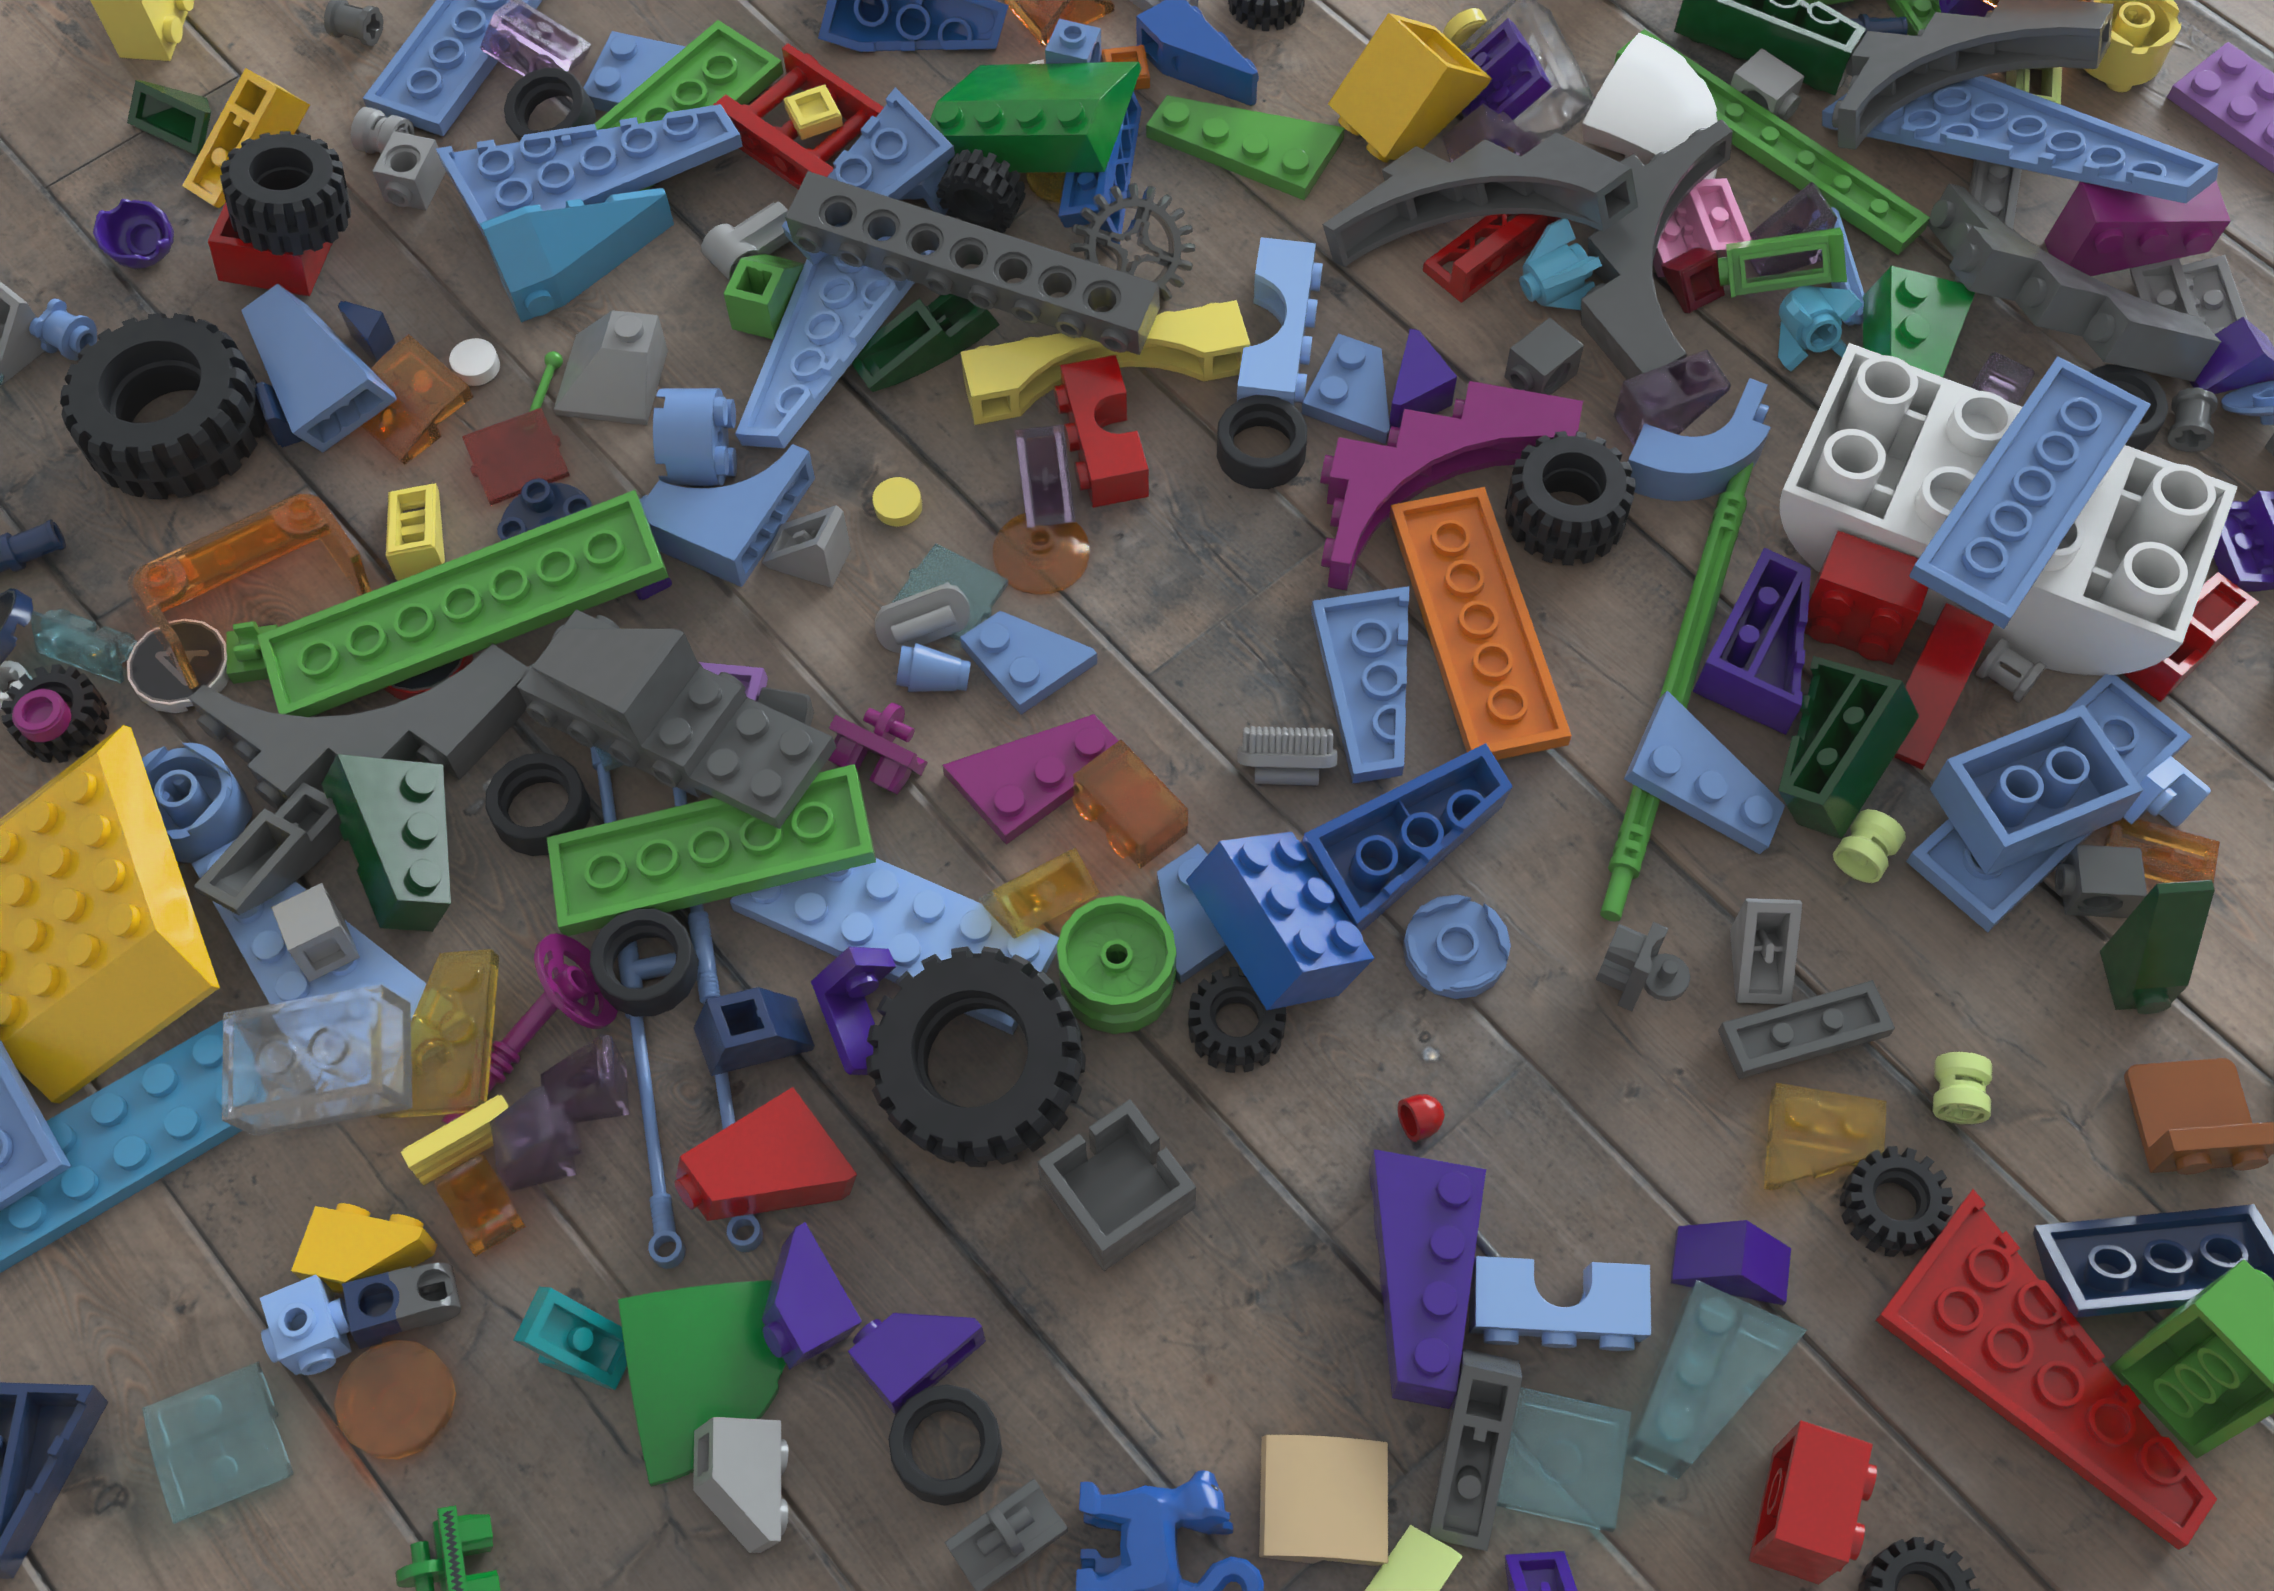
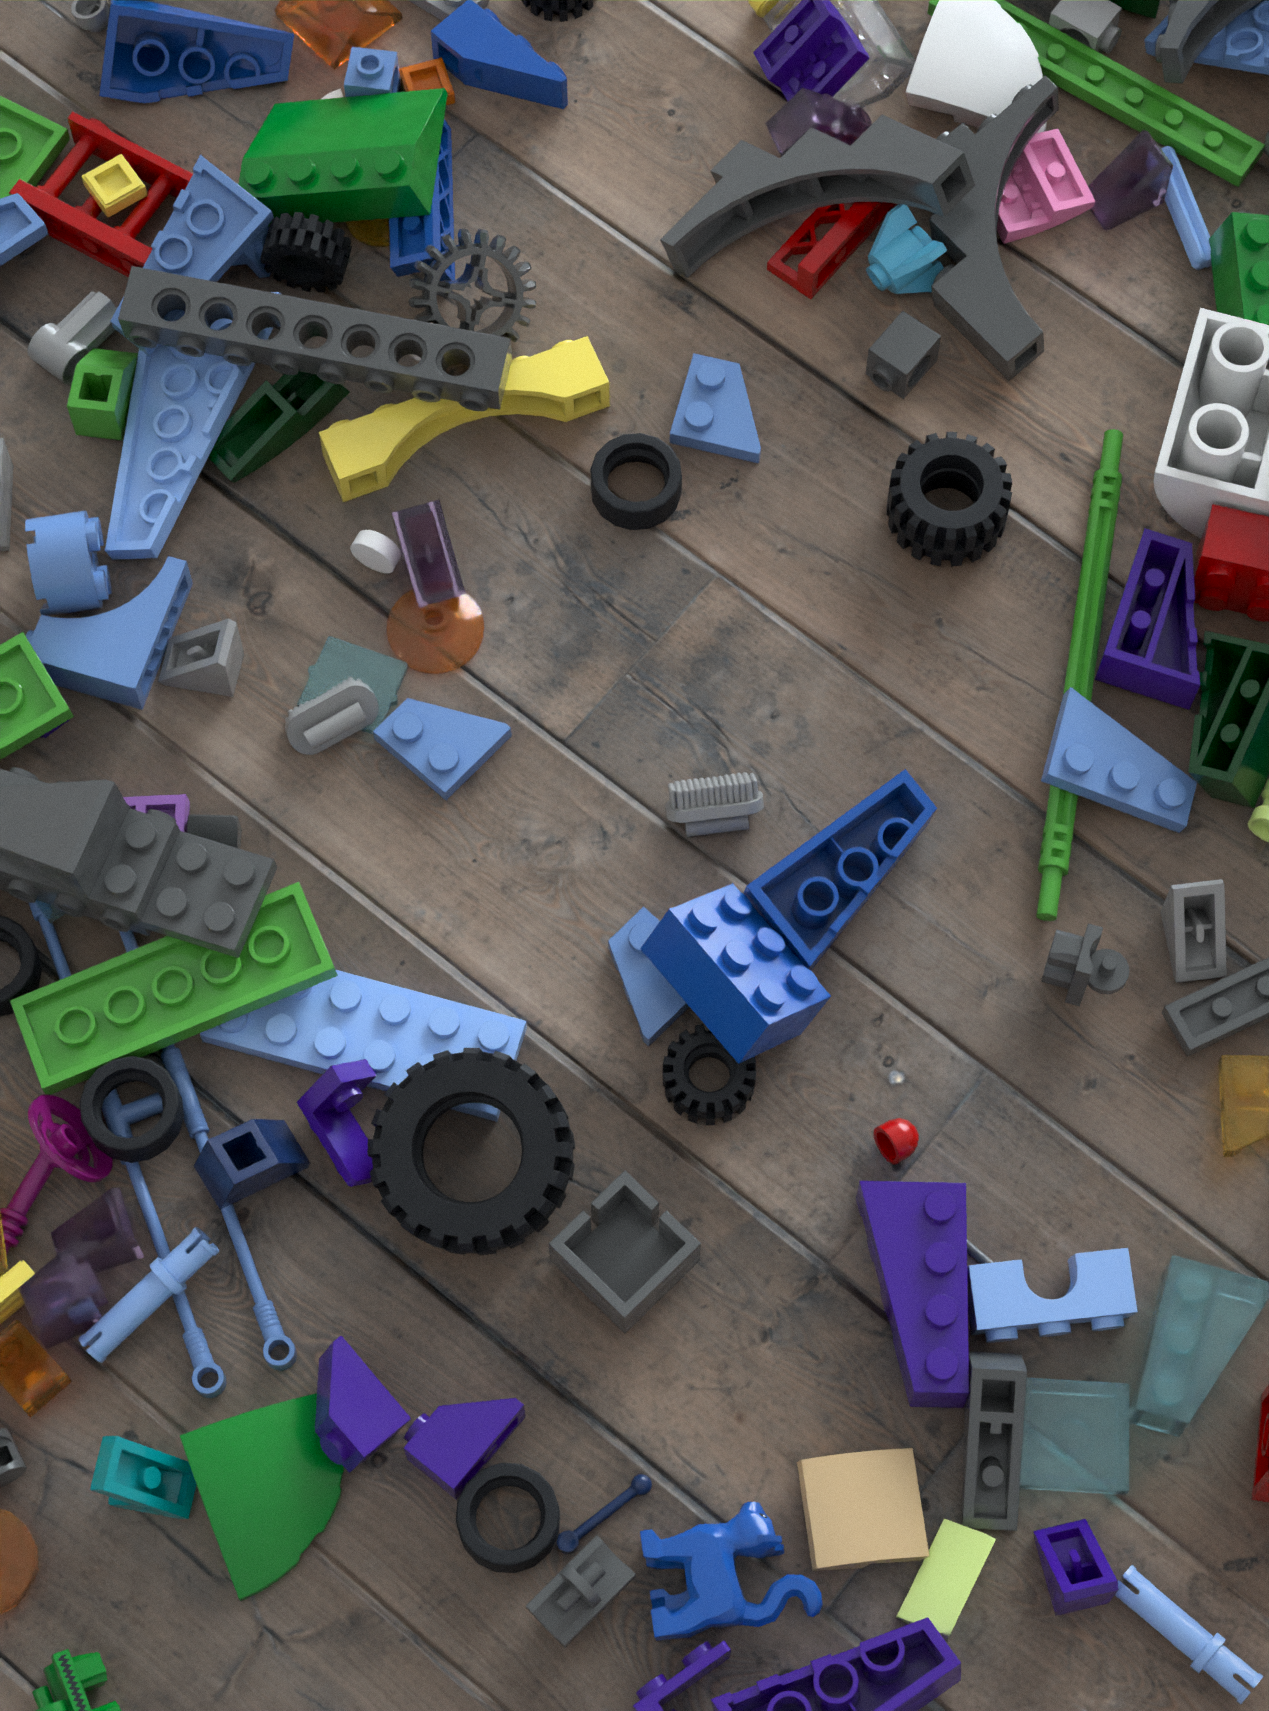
camera: 10 degrees left, 5 degrees up
(640, 1137) = (164, 1279): none -> light blue pin
(740, 1477) = (326, 1579): light grey slope -> none
(765, 1164) = (290, 1285): red slope -> none
(895, 761) = (334, 870): magenta hips -> none
(897, 501) = (281, 597): light yellow tile -> none
(931, 670) = (350, 770): medium blue cone -> none
(995, 470) = (376, 551): none -> white tile
(1006, 1480) = (569, 1540): none -> dark blue hinge
(1029, 776) = (472, 860): magenta wing -> none
(1041, 894) = (501, 980): clear yellow slope -> none
(1109, 463) = (489, 528): red arch -> none
(1117, 964) = (587, 1039): bright green wheel -> none
(1129, 804) = (570, 878): clear orange brick -> none
(1254, 144) = (572, 153): bright green wing -> none
(1283, 287) = (630, 310): light blue arch -> none
(1366, 670) = (777, 704): medium blue wing -> none
(1406, 87) = (722, 76): yellow slope -> none
(1423, 380) = (787, 397): dark purple slope -> none
(1426, 450) = (855, 437): magenta arch -> none
(1456, 947) = (905, 969): medium blue tile -> none
(1479, 624) = (879, 641): orange plate -> none
(1670, 395) = (1032, 378): clear purple slope -> none
(1694, 278) = (1040, 242): dark red slope -> none
(1700, 466) = (1070, 446): medium blue arch -> none
(1732, 1259) = (1202, 1229): dark purple slope -> none
(1813, 322) = (1163, 276): medium azure brick -> none
(1833, 256) = (1125, 200): bright green window -> none

